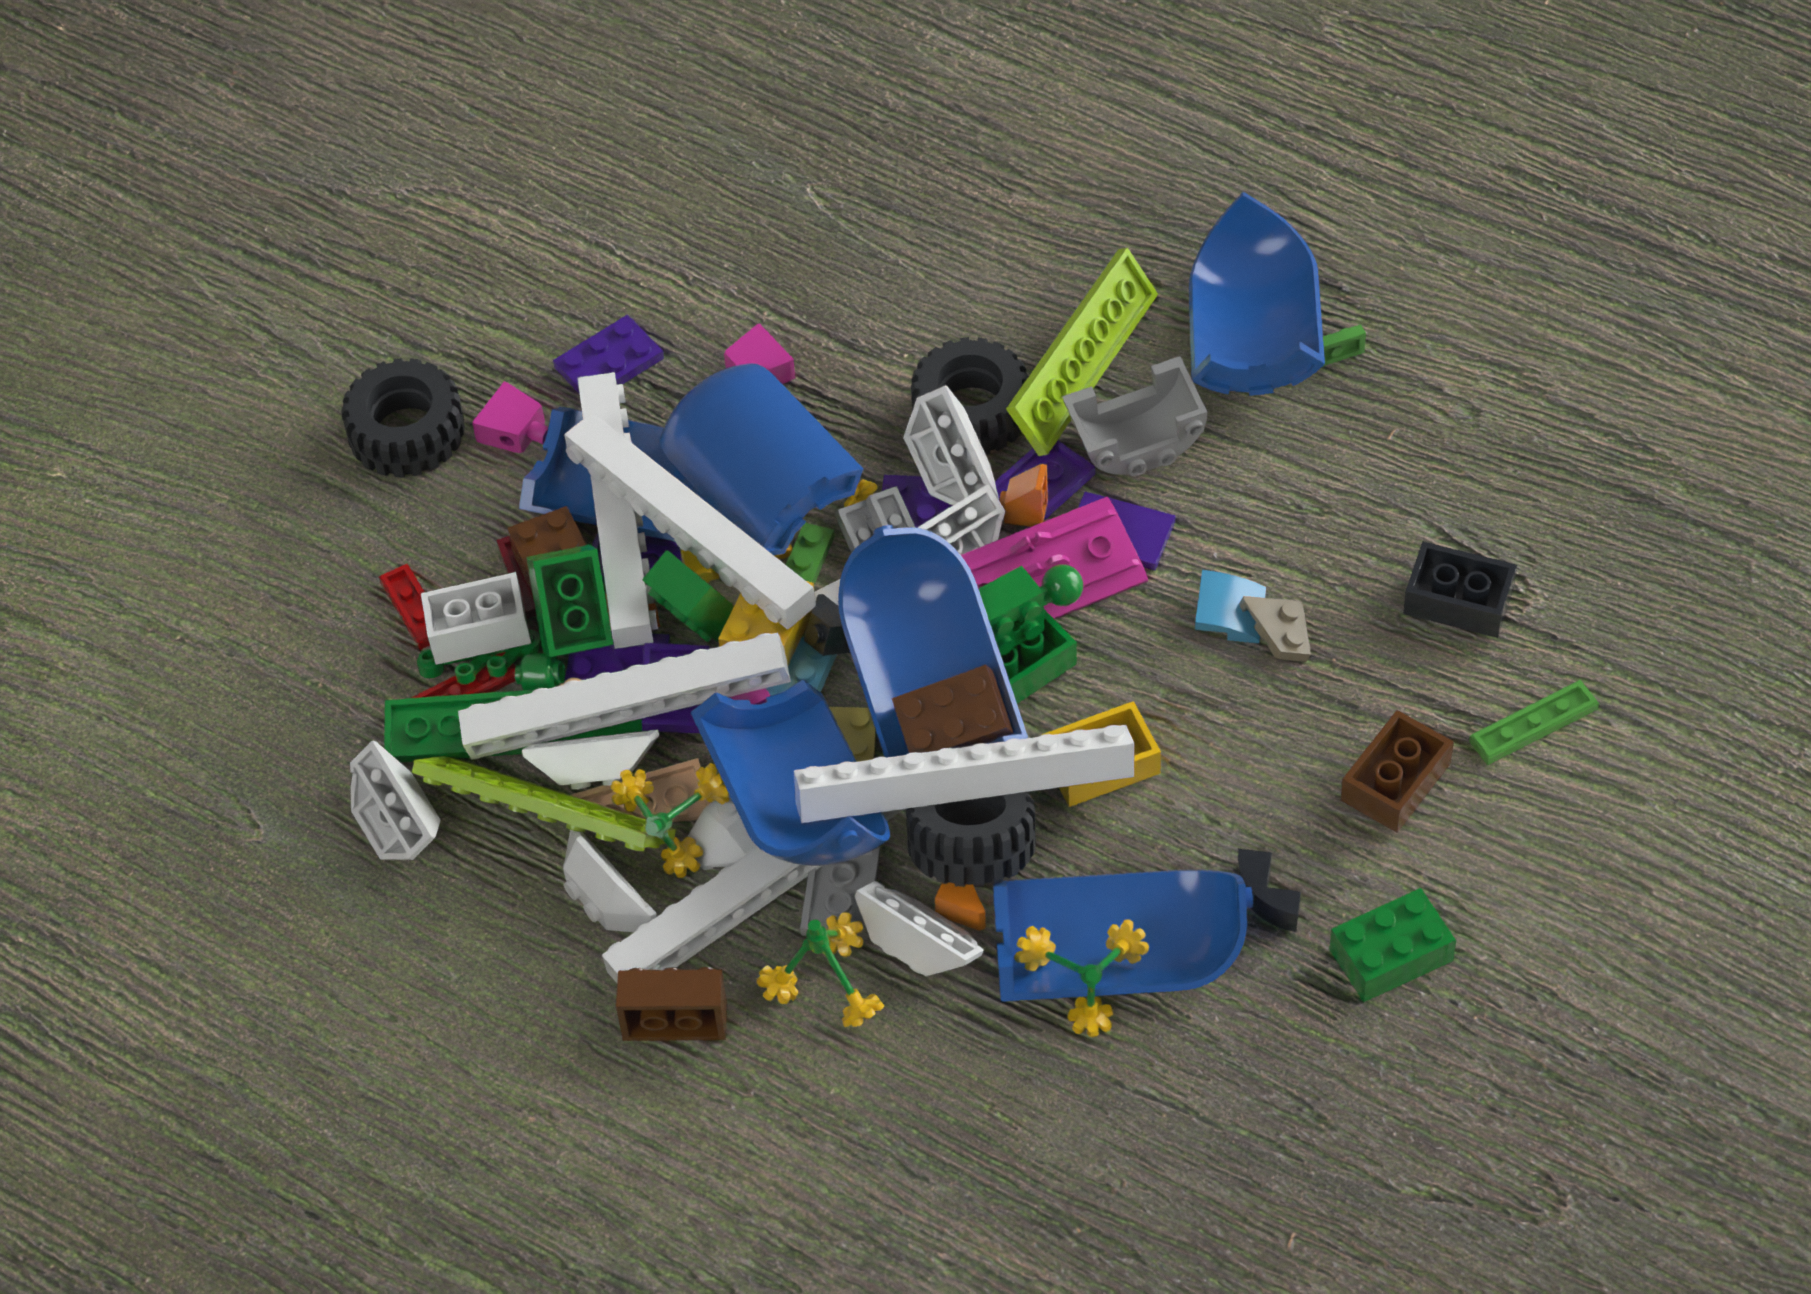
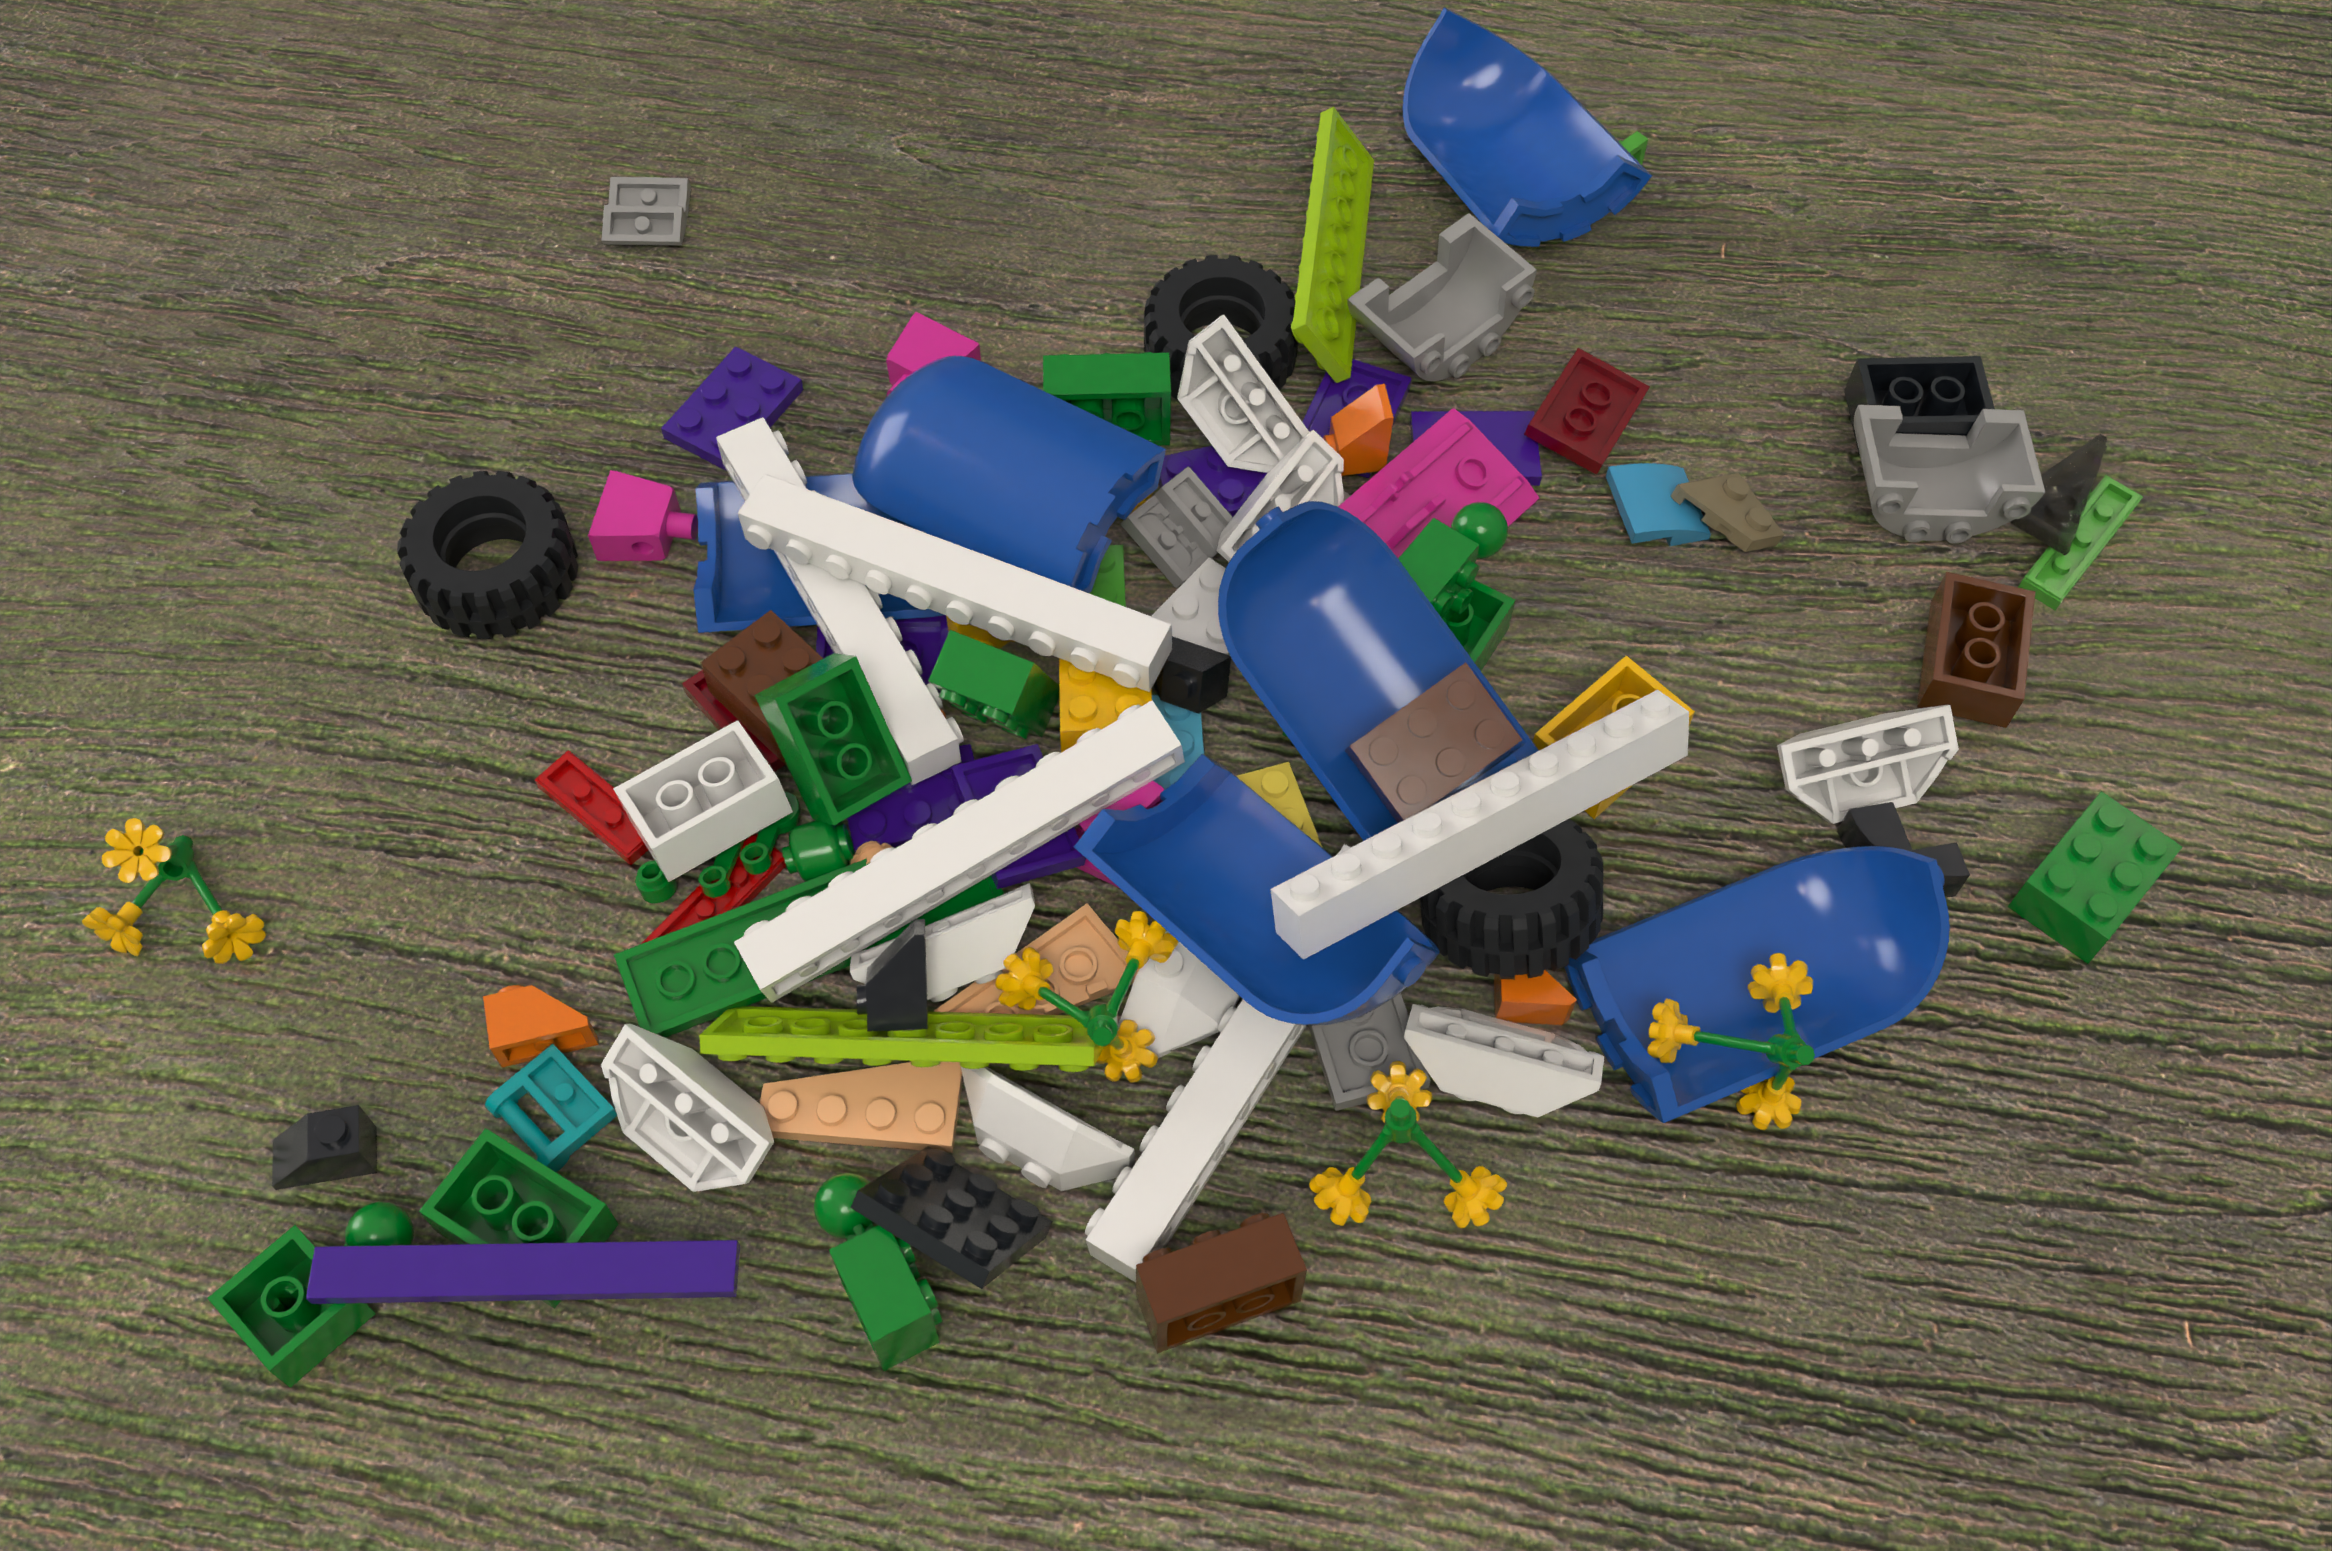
camera: 25 degrees left, 5 degrees up
(117, 549) = (138, 853): none -> yellow plant
(125, 846) = (262, 1294): none -> green brick
(170, 764) = (325, 1148): none -> black slope
(260, 864) = (524, 1272): none -> dark purple tile
(269, 838) = (513, 1199): none -> green brick
(320, 730) = (528, 1021): none -> orange slope
(323, 778) = (563, 1096): none -> teal plate
(467, 935) = (877, 1275): none -> green brick
(514, 844) = (869, 1107): none -> light nougat wing
(526, 914) = (953, 1215): none -> black plate
(548, 767) = (897, 984): none -> black slope
(606, 196) = (646, 211): none -> light grey slope
(865, 422) = (1119, 388): none -> green brick
(1211, 525) = (1586, 411): none -> dark red plate
(1275, 823) = (1868, 760): none -> white wedge
(1436, 646) = (1947, 483): none -> light grey cylinder
(1526, 687) = (2067, 491): none -> clear smoke wing

